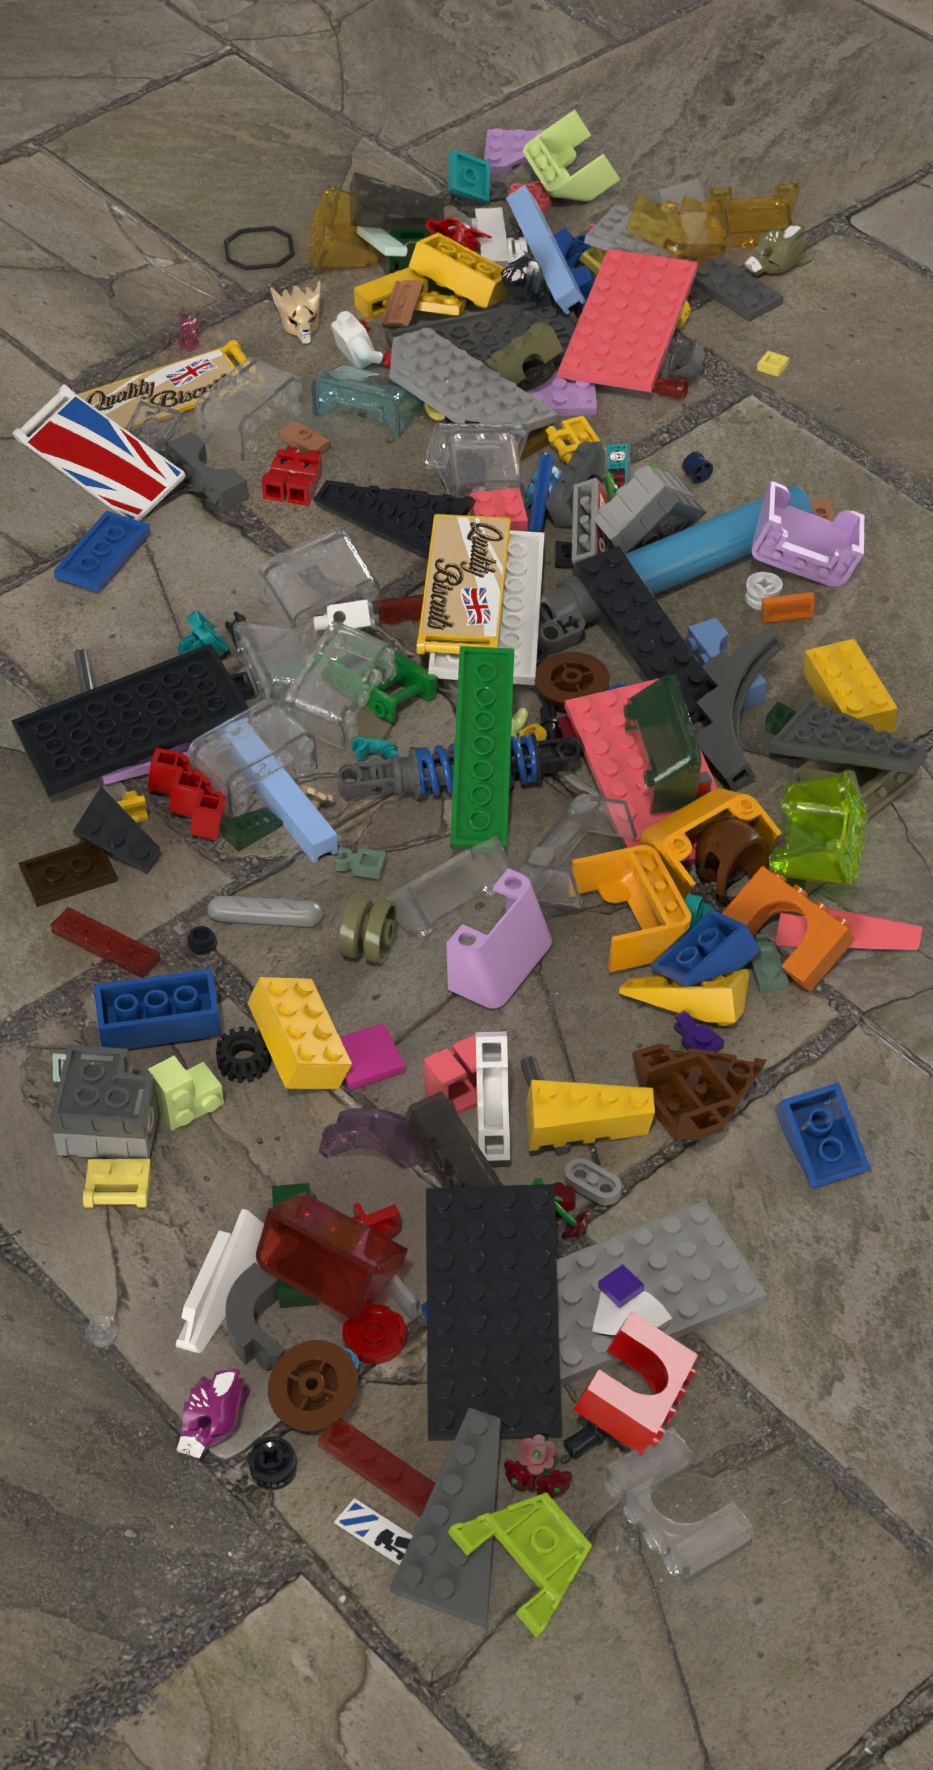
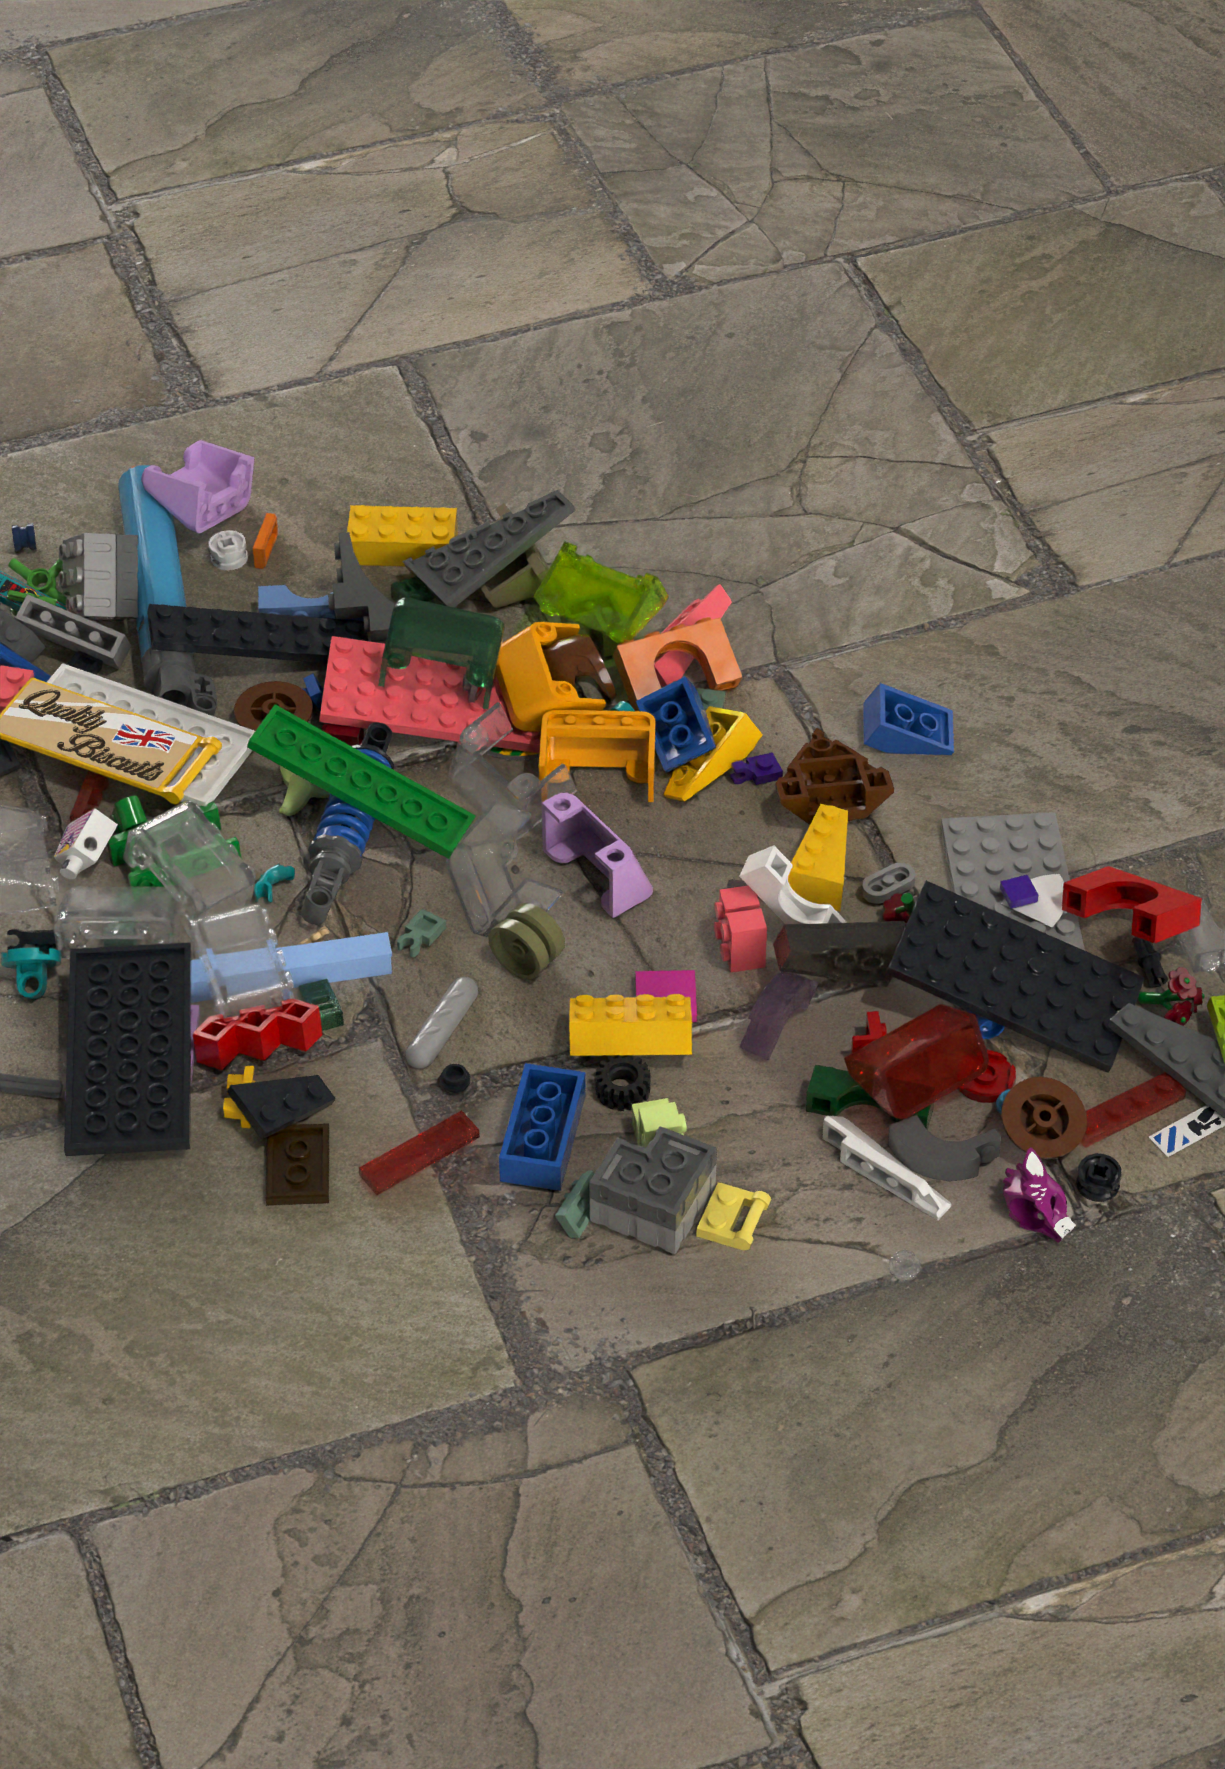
camera: 70 degrees left, 0 degrees up
(396, 633) = (128, 814): none -> green piece

